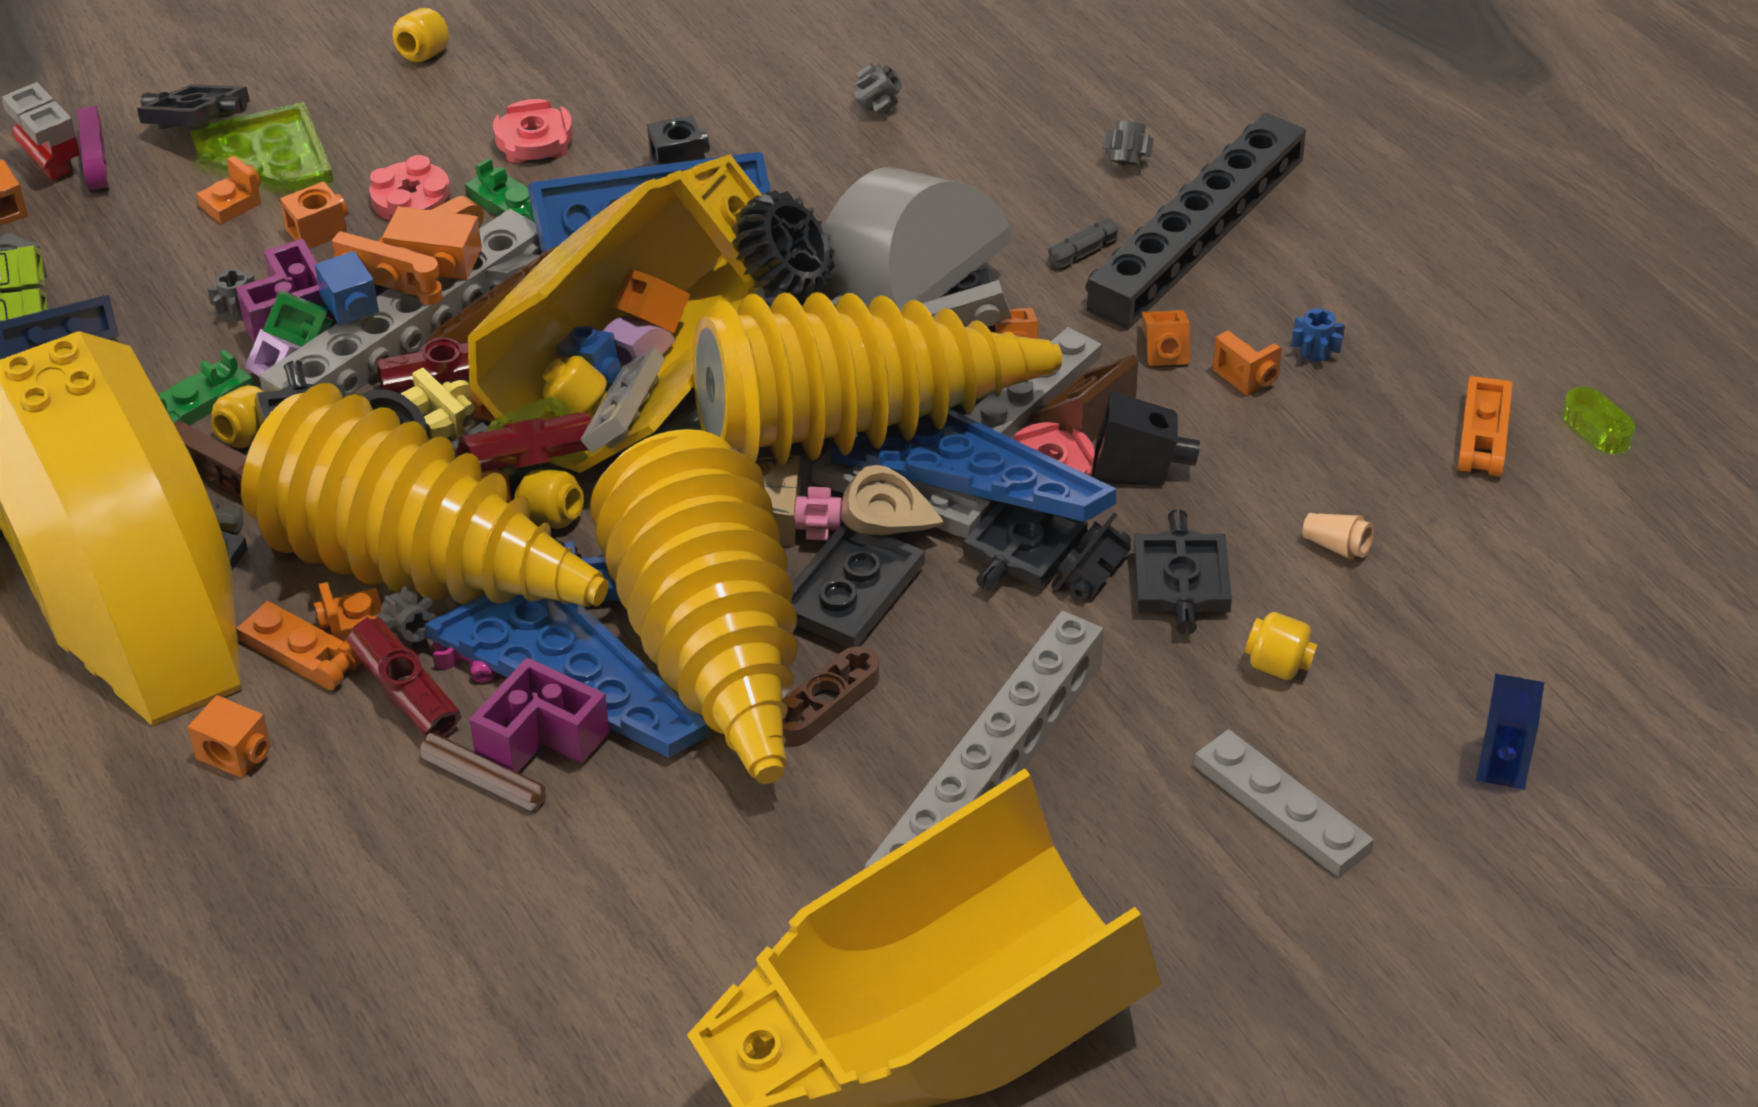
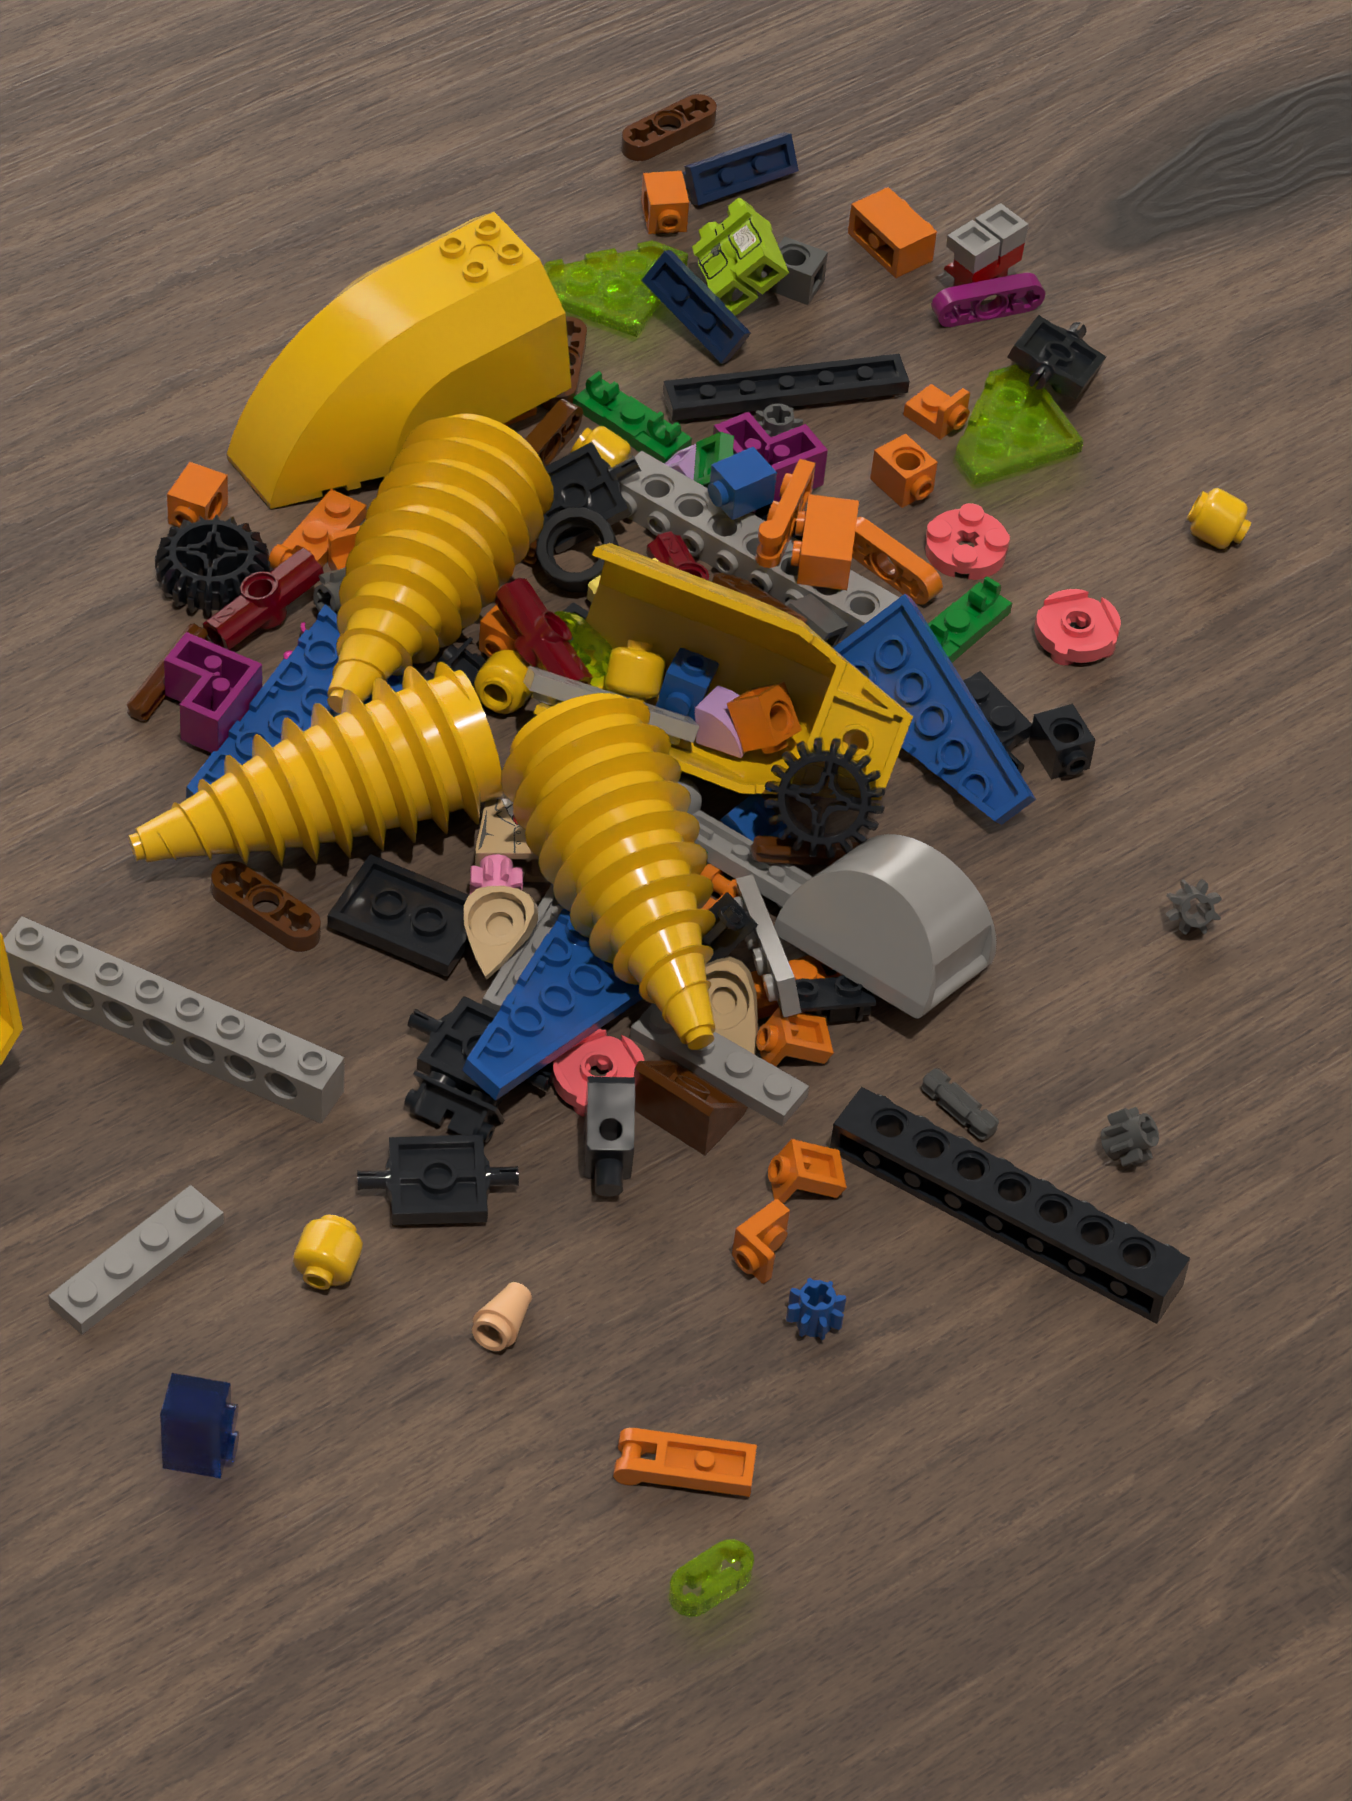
camera: 80 degrees right, 5 degrees up
(173, 290) = (785, 385): none -> black plate
(335, 725) = (187, 558): none -> black gear

